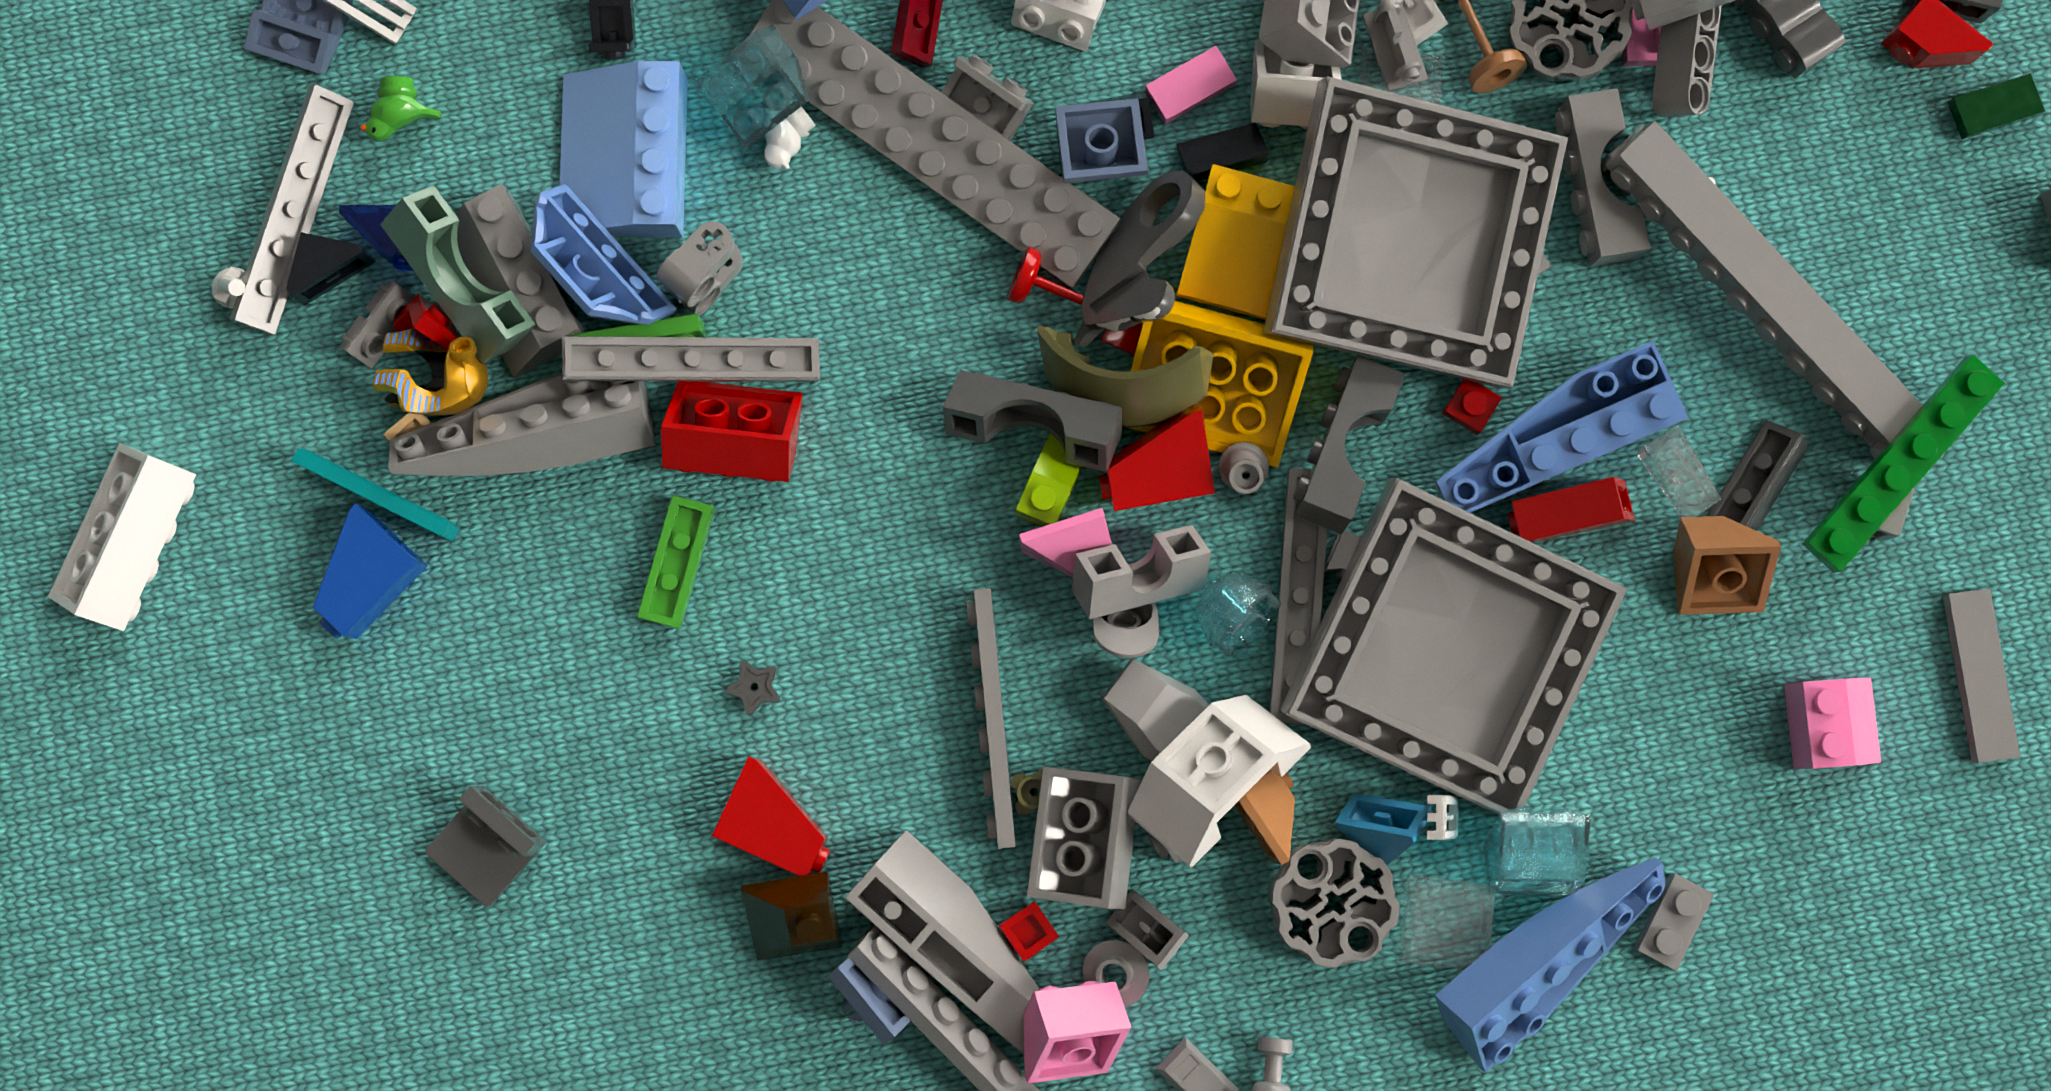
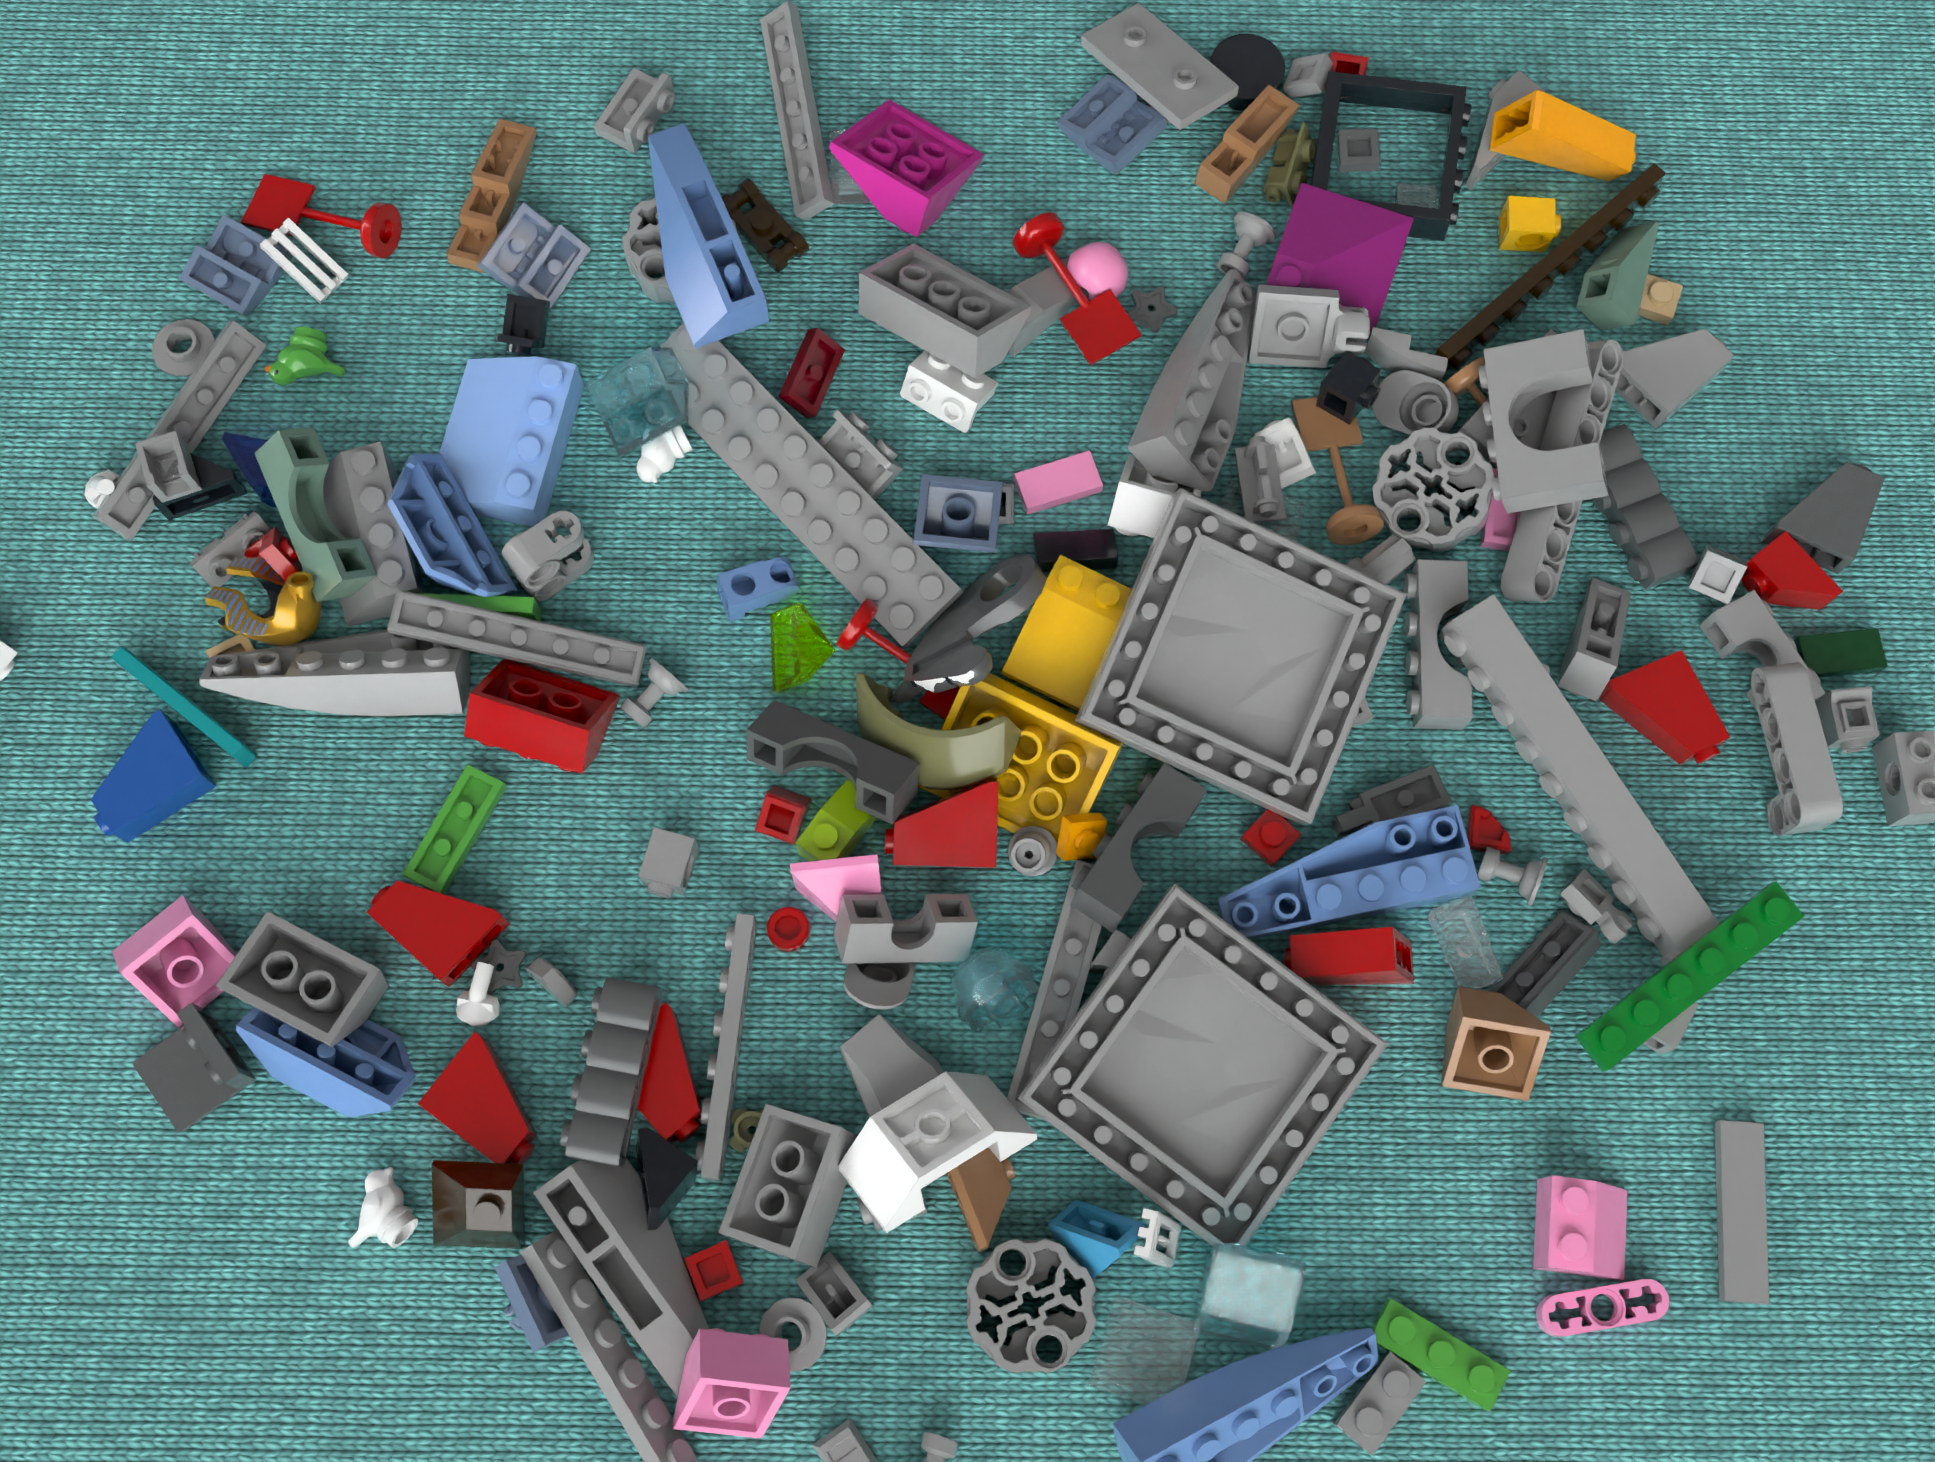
camera: 10 degrees right, 10 degrees down
(280, 134) = (181, 363): none -> light grey piece
(294, 253) = (168, 466): none -> light grey window
(442, 745) = (175, 959): none -> bright pink slope
(570, 742) = (304, 980): none -> light grey slope
(614, 804) = (354, 1077): none -> medium blue wedge
(682, 662) = (437, 928): none -> red slope
(703, 940) = (384, 1211): none -> white animal
(740, 728) = (476, 1005): none -> white plate
(808, 689) = (552, 980): none -> light grey tile
(843, 374) = (661, 683): none -> light grey piece
(893, 552) = (668, 863): none -> light grey brick
(894, 769) = (613, 1072): none -> dark grey brick
(913, 256) = (756, 586): none -> medium blue leg
(931, 760) = (668, 1087): none -> red slope
(961, 853) = (664, 1175): none -> black slope
(967, 310) = (796, 647): none -> clear neon green slope
(992, 480) = (783, 814): none -> red slope
(1023, 591) = (788, 929): none -> red tile
(1289, 444) = (1080, 835): none -> light orange plate
(1533, 102) = (1385, 560): none -> light grey piece
(1587, 347) = (1401, 797): none -> dark grey hinge
(1680, 357) = (1486, 831): none -> red tile
(1721, 866) = (1439, 1355): none -> bright green plate
(1730, 397) = (1527, 878): none -> light grey piece
(1755, 142) = (1595, 640): none -> light grey slope
(1795, 407) = (1593, 903): none -> light grey plate
(1839, 198) = (1668, 708): none -> red slope
(1866, 50) = (1717, 574): none -> light grey brick
(1887, 770) = (1630, 1289): none -> bright pink beam
(1949, 144) = (1750, 628): none -> light grey arch
(1973, 217) = (1797, 751): none -> light grey beam
(2013, 173) = (1848, 719): none -> light grey window

